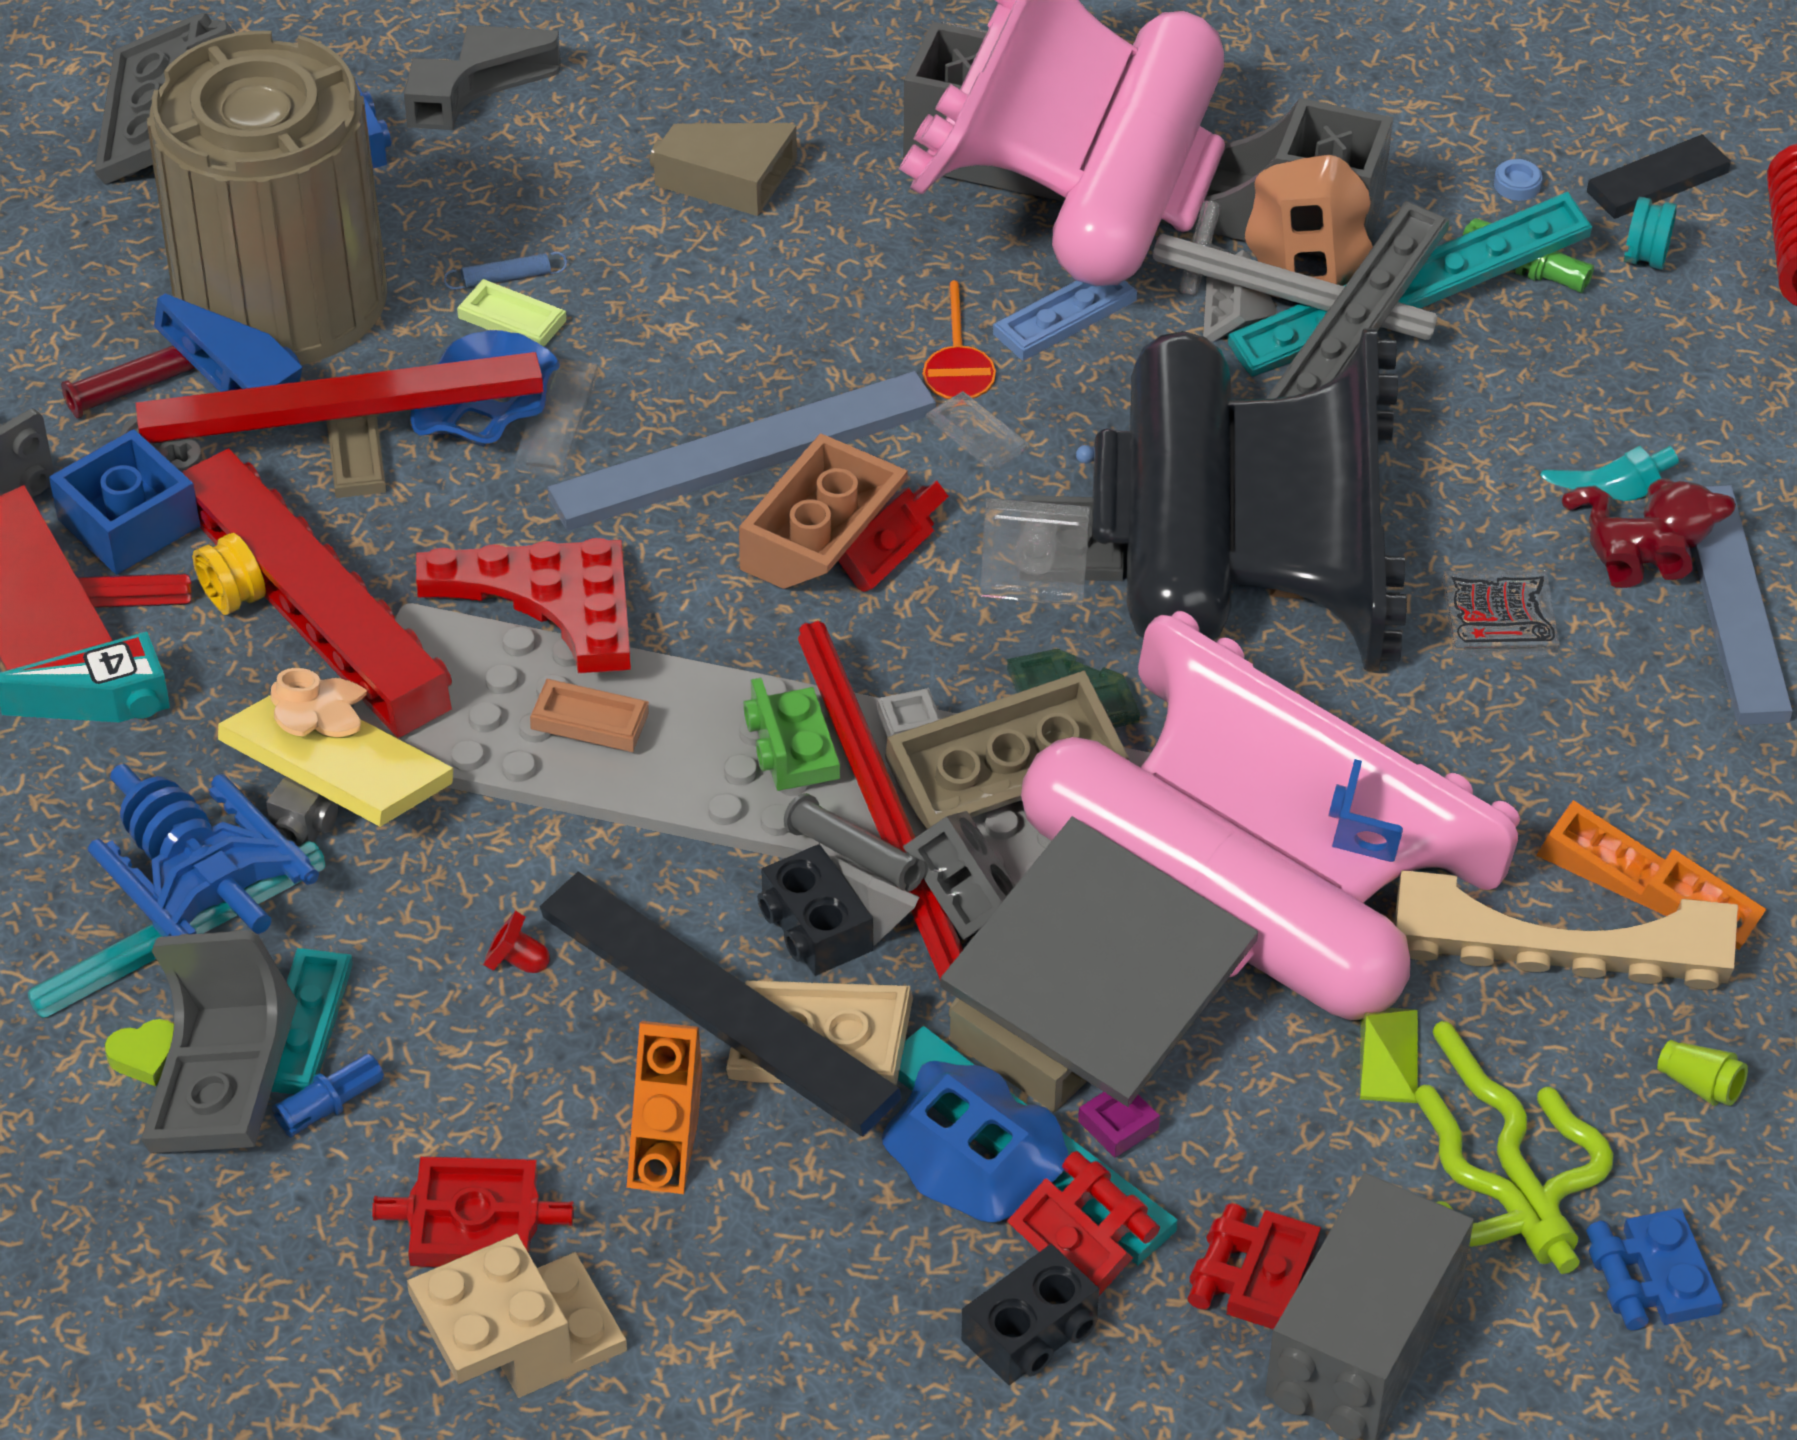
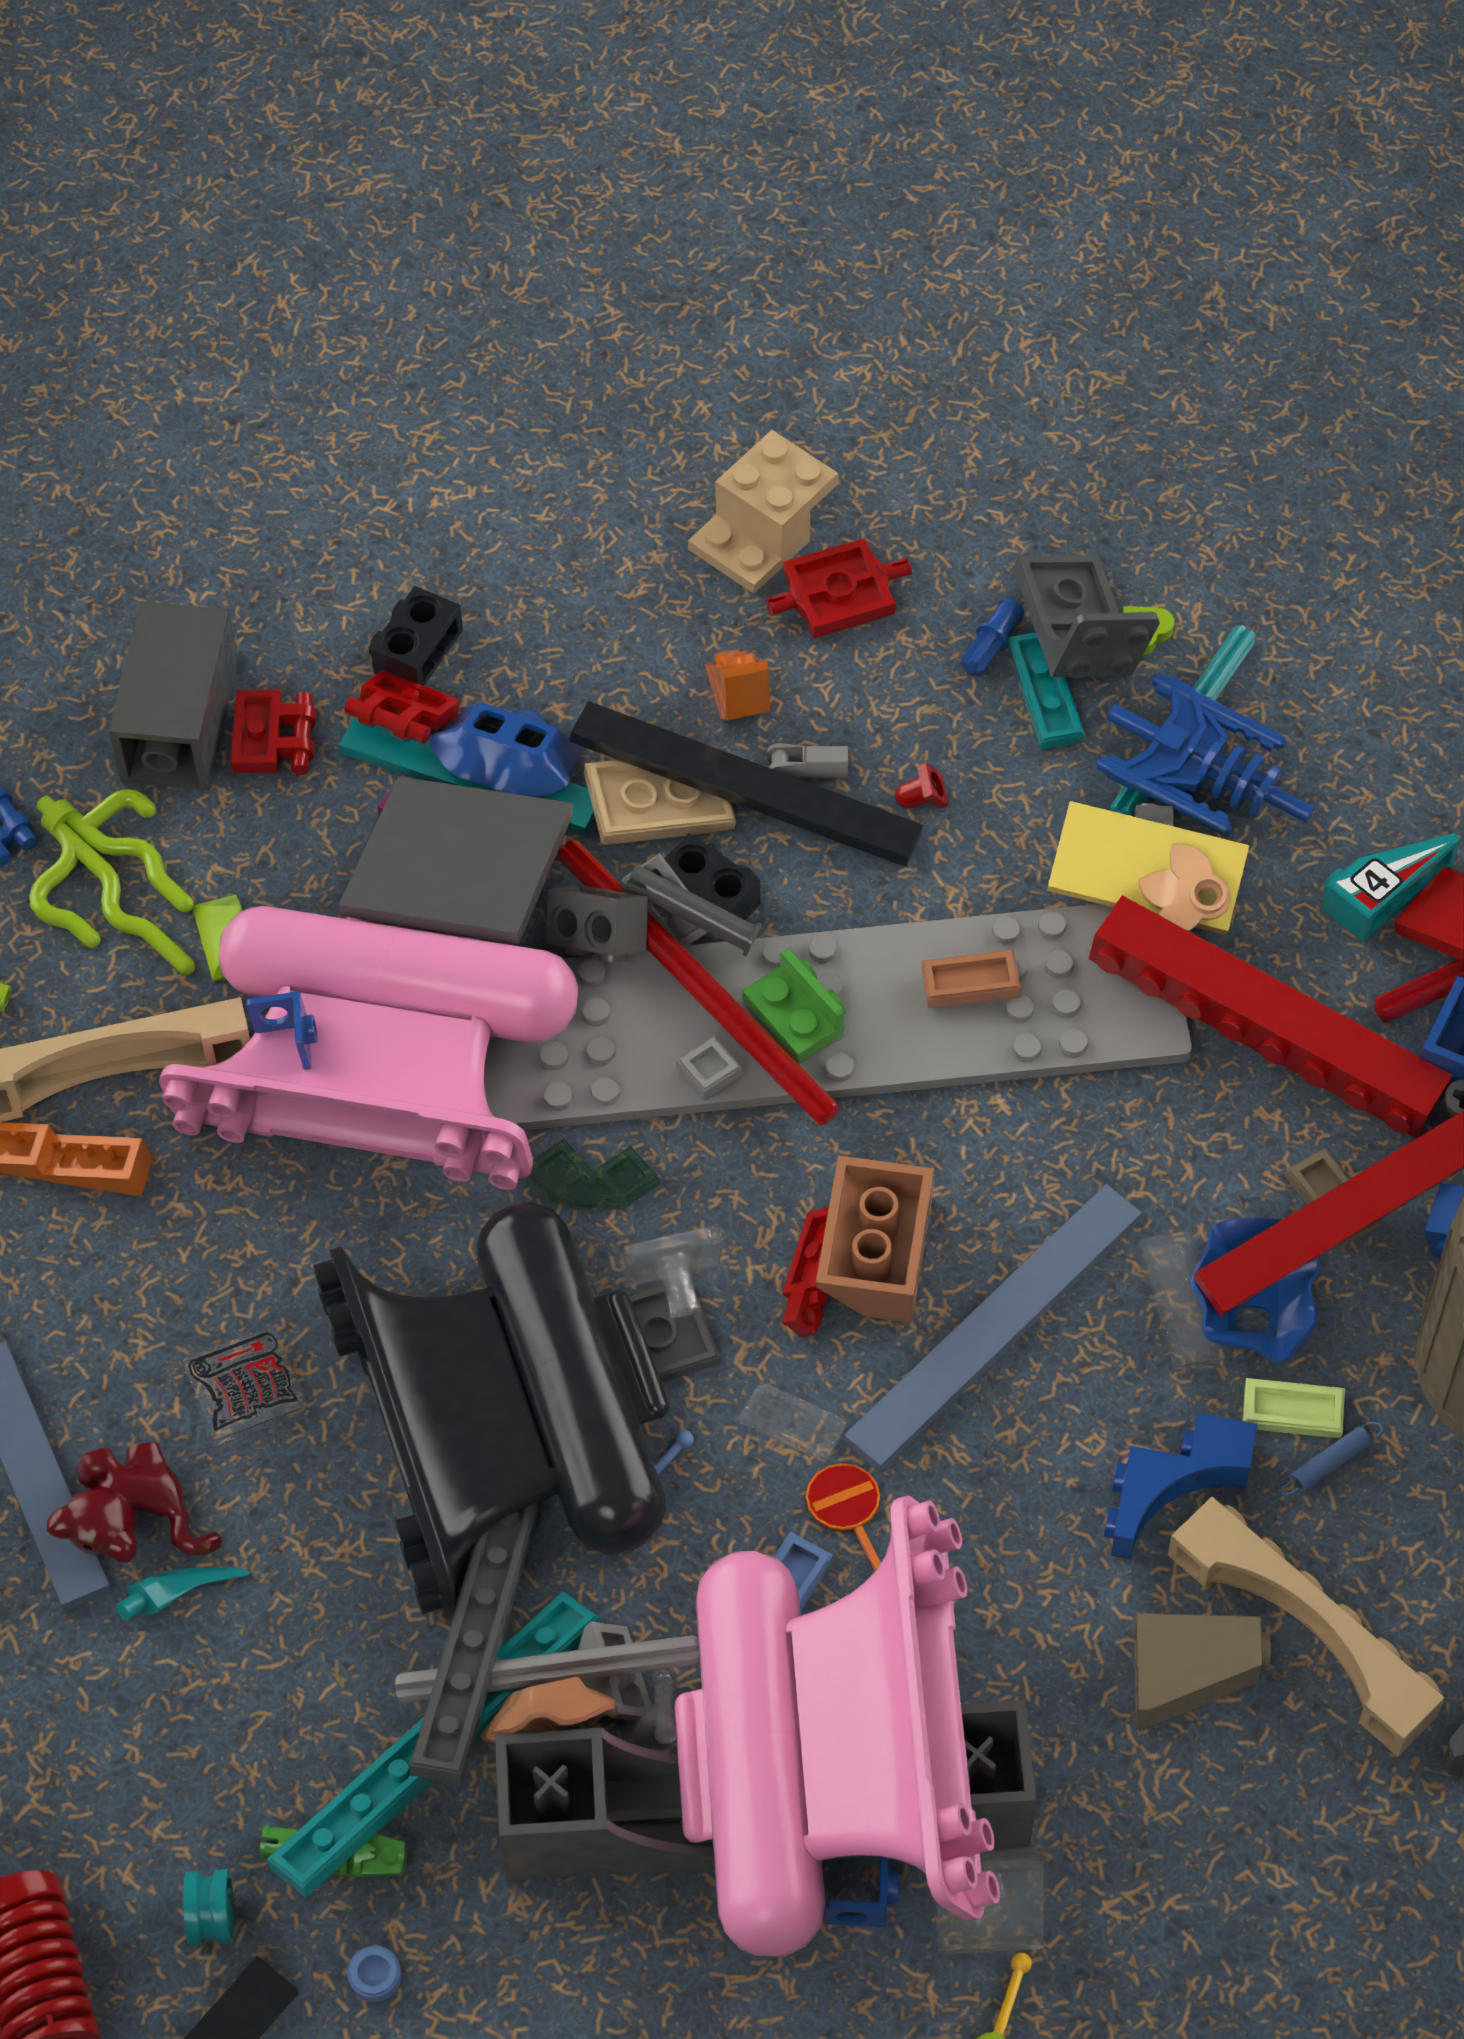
camera: 160 degrees right, 10 degrees up
(229, 573) = (1353, 1001): yellow wheel -> none
(569, 583) = (1068, 1111): plate -> none
(618, 1016) = (817, 760): none -> light grey bar
(647, 223) = (1224, 1550): none -> tan arch
(679, 285) = (1209, 1457): none -> blue arch
(983, 753) = (612, 1050): dark tan slope -> none

